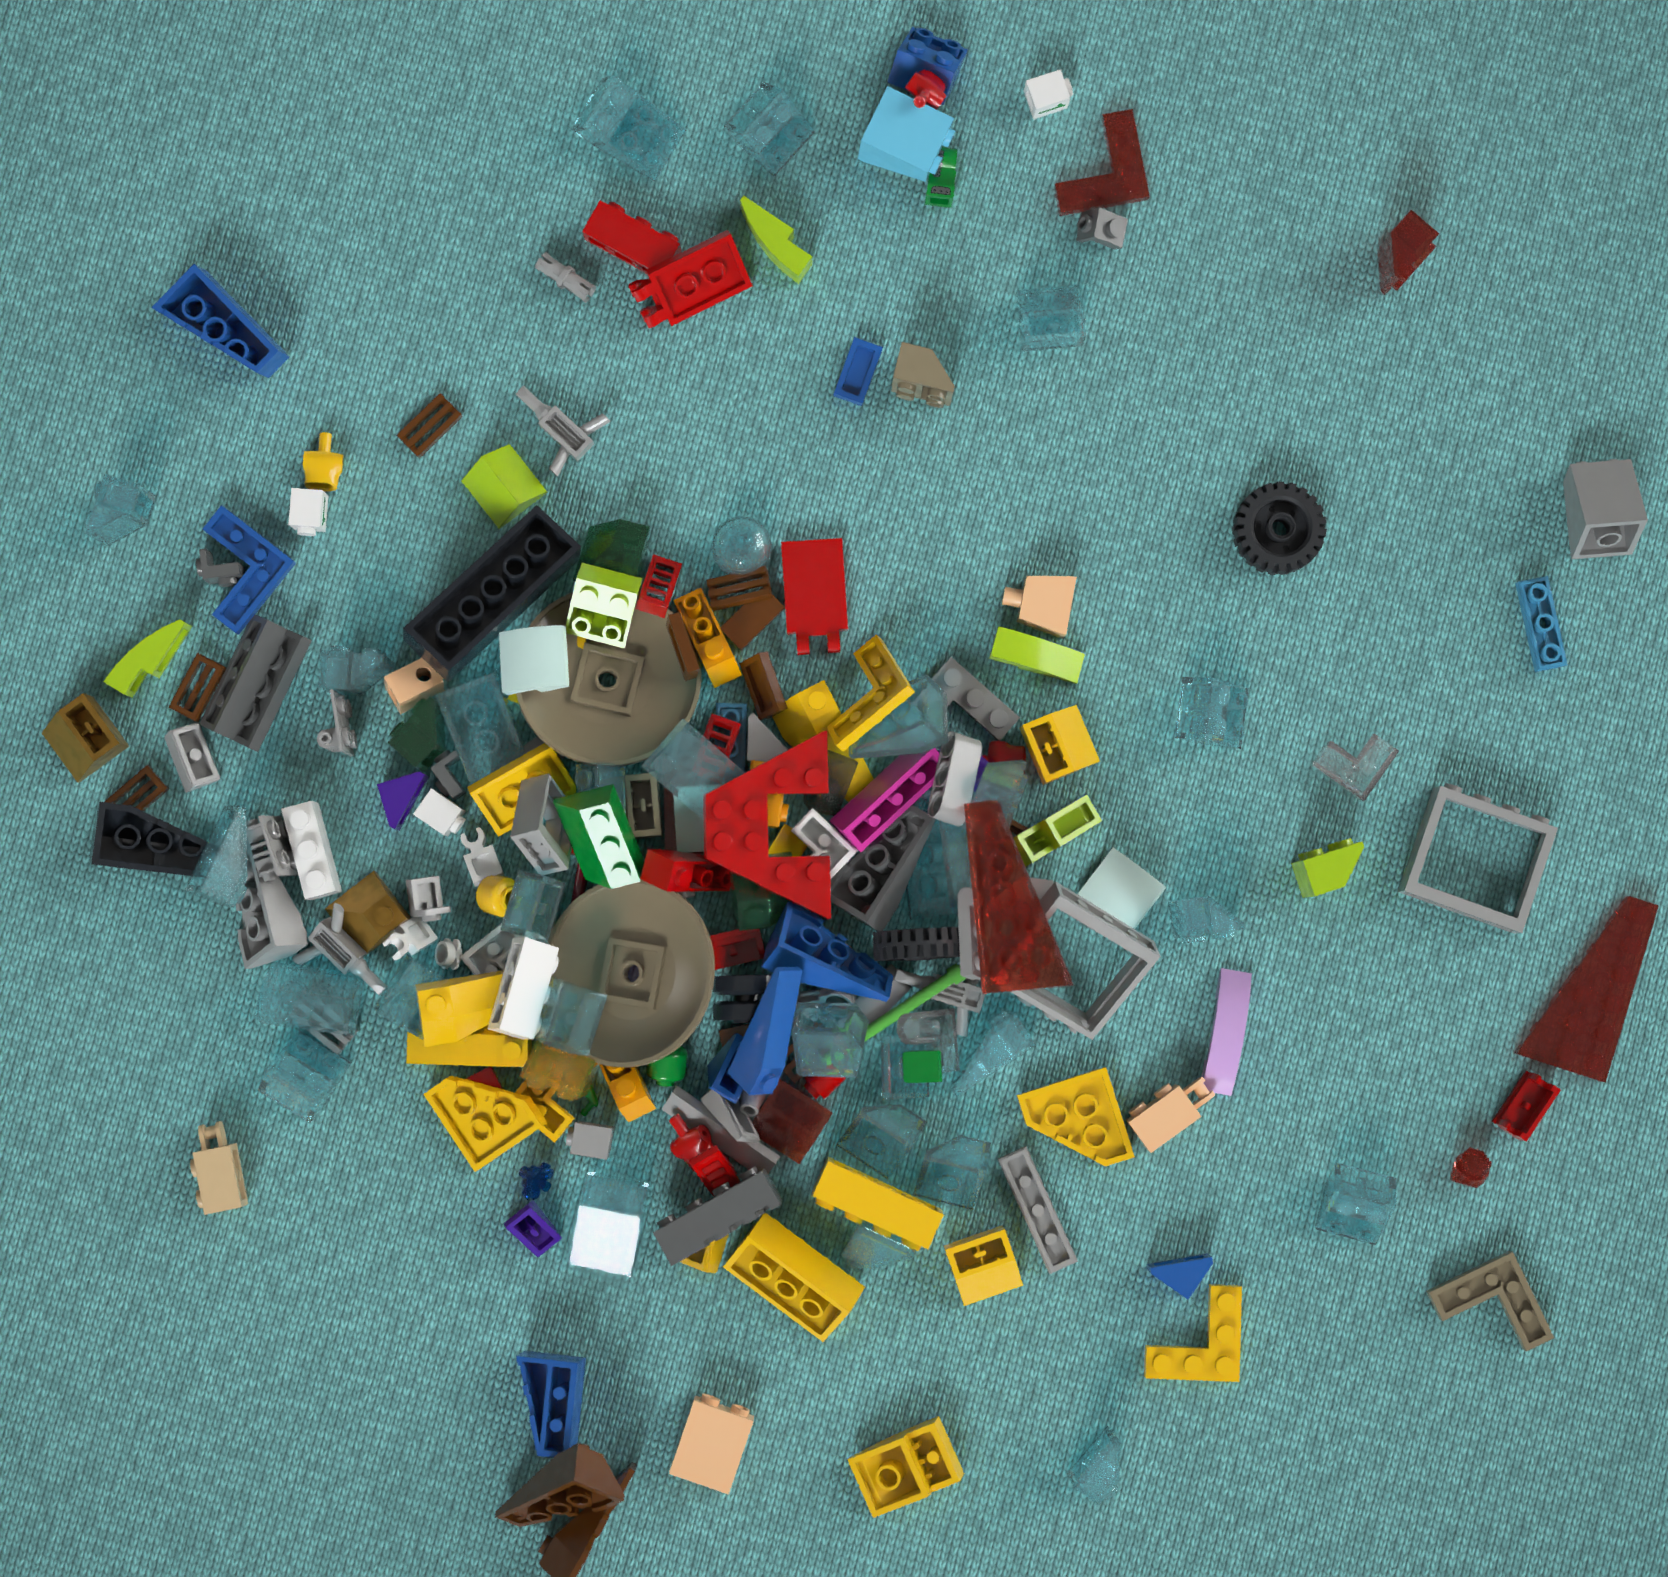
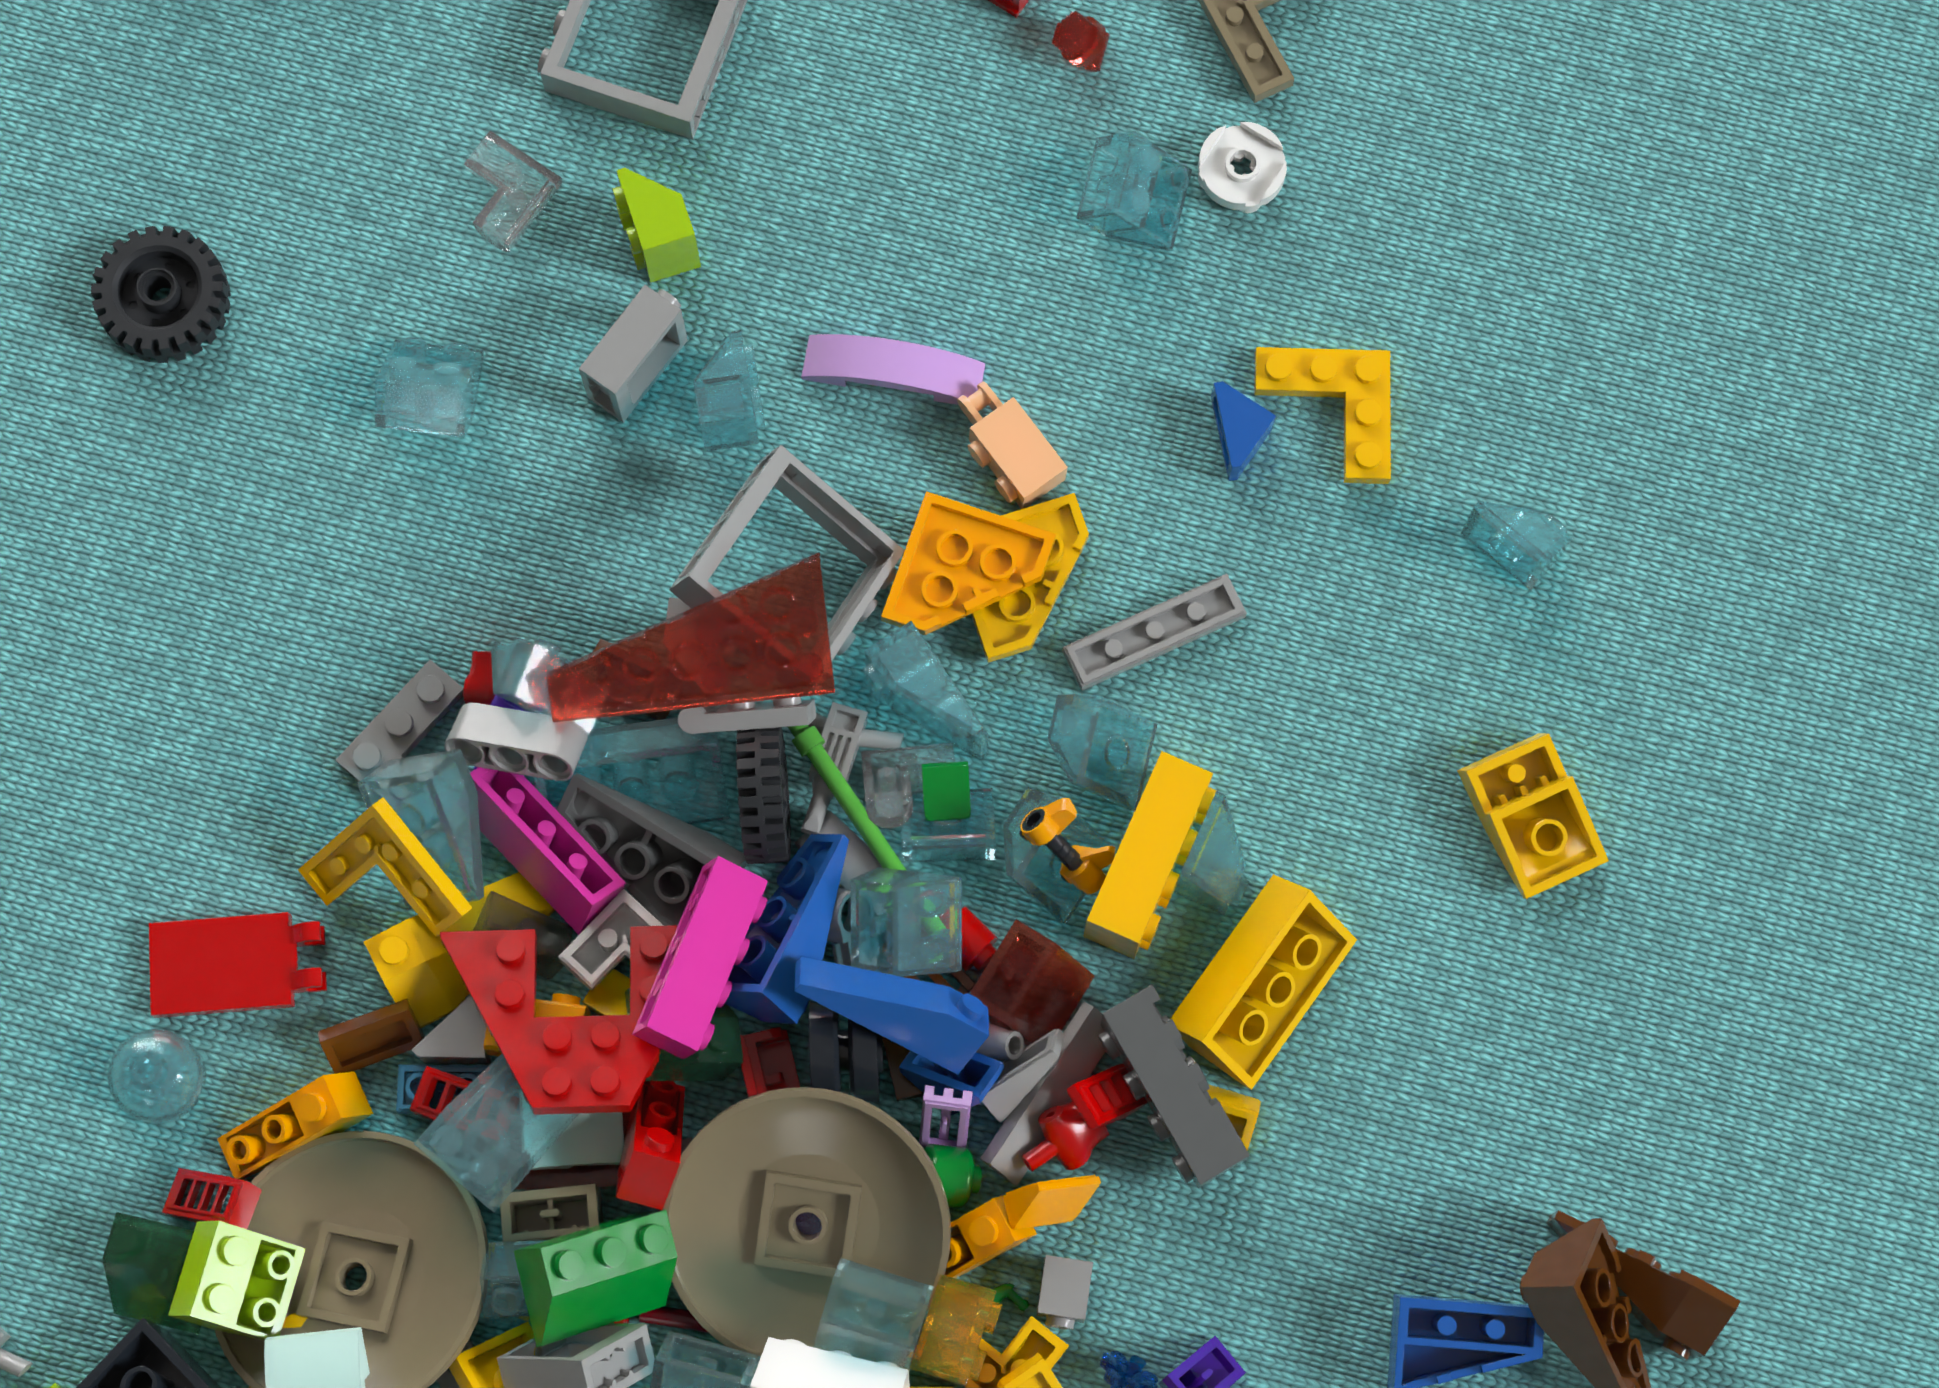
camera: 85 degrees left, 10 degrees down
(609, 1223) = (1191, 1261): clear light blue slope -> none
(647, 1131) = (1049, 1201): none -> light orange slope
(682, 646) = (305, 1157): reddish brown tile -> none
(706, 1064) = (946, 1103): none -> lavender tile
(712, 1443) = (1513, 1097): light nougat panel -> none
(730, 579) = (237, 1075): reddish brown tile -> none
(751, 621) = (266, 1056): reddish brown tile -> none
(804, 904) = (701, 958): none -> dark pink brick
(870, 1156) = (1079, 864): none -> light orange piece
(983, 1265) = (1235, 704): yellow slope -> none
(1036, 655) = (336, 636): lime slope -> none
(1043, 603) = (259, 625): light nougat torso -> none
(1056, 830) = (593, 597): lime slope -> none
(1059, 744) = (471, 603): yellow slope -> none
(1082, 1079) = (962, 563): none -> light orange plate
(1122, 889) = (681, 509): light aqua slope -> none
(1234, 854) = (634, 352): none -> light grey window
(1394, 1276) = (1235, 143): none -> white plate

